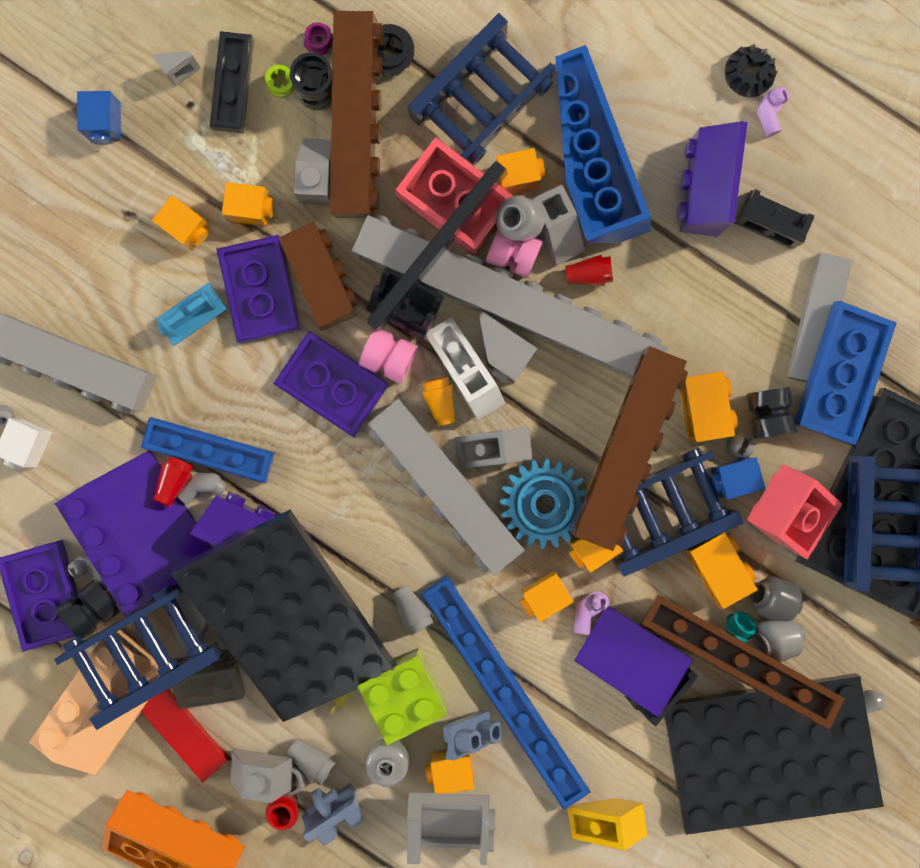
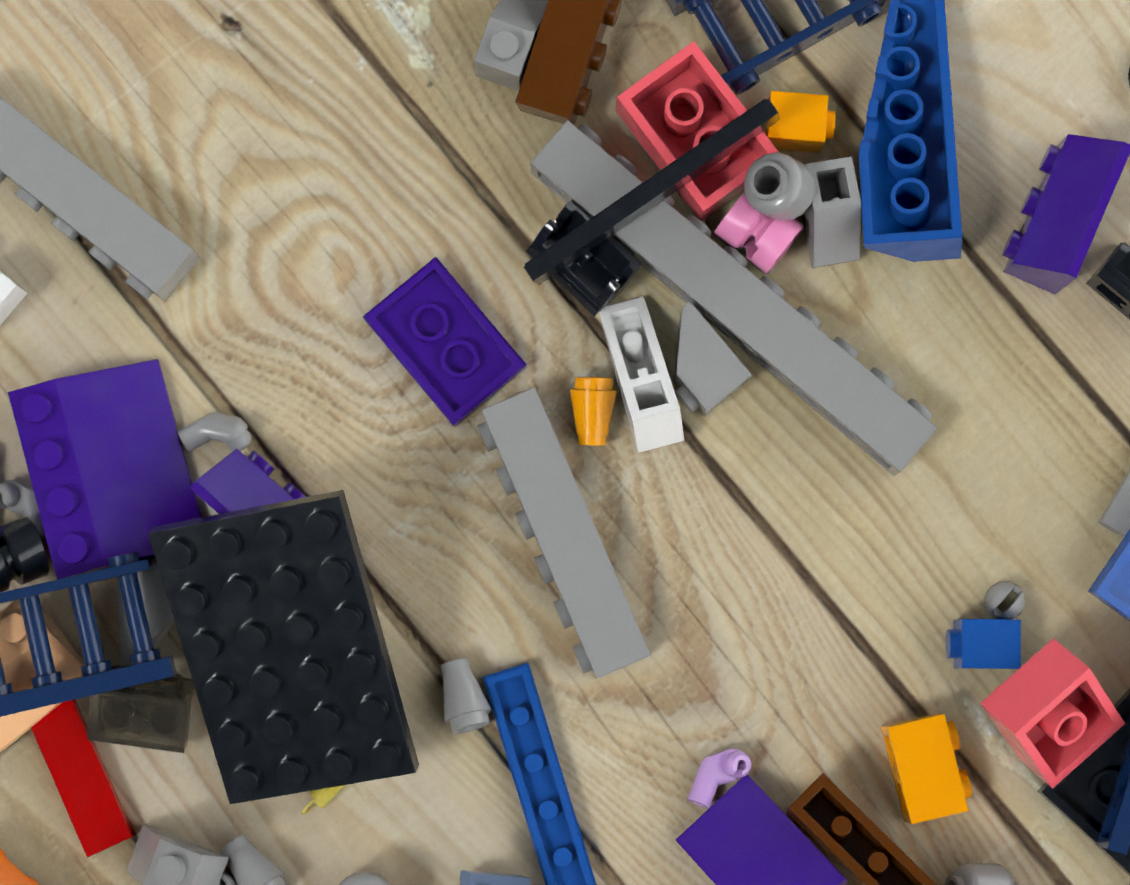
camera: 15 degrees right, 5 degrees down
(171, 480) = (179, 409): red cone -> none
(182, 223) = (304, 56): light orange brick -> none
(190, 314) = (276, 186): dark azure hinge -> none
(208, 450) = (241, 383): blue tile -> none
(247, 204) = (403, 57): light orange brick -> none
(258, 289) = (382, 179): dark purple tile -> none
(319, 276) = (474, 185): reddish brown brick -> none
(388, 355) = (538, 324): bright pink wheel -> none
(404, 698) = (414, 817): lime brick -> none
(493, 448) = (649, 498): light grey slope -> none
(523, 503) = (729, 593): dark azure gear -> none
(545, 596) = (661, 733): light orange brick -> none
(590, 271) = (859, 290): red cone -> none
(590, 554) = (751, 683): light orange brick -> none
(629, 448) = (840, 552): reddish brown brick -> none
(690, 531) = (849, 705): dark blue fence -> none
(708, 407) = (971, 529): light orange brick -> none
(740, 626) = (932, 859): teal plate -> none
(774, 424) = (1060, 564): black wheel -> none
(777, 599) = (994, 836): dark grey head -> none

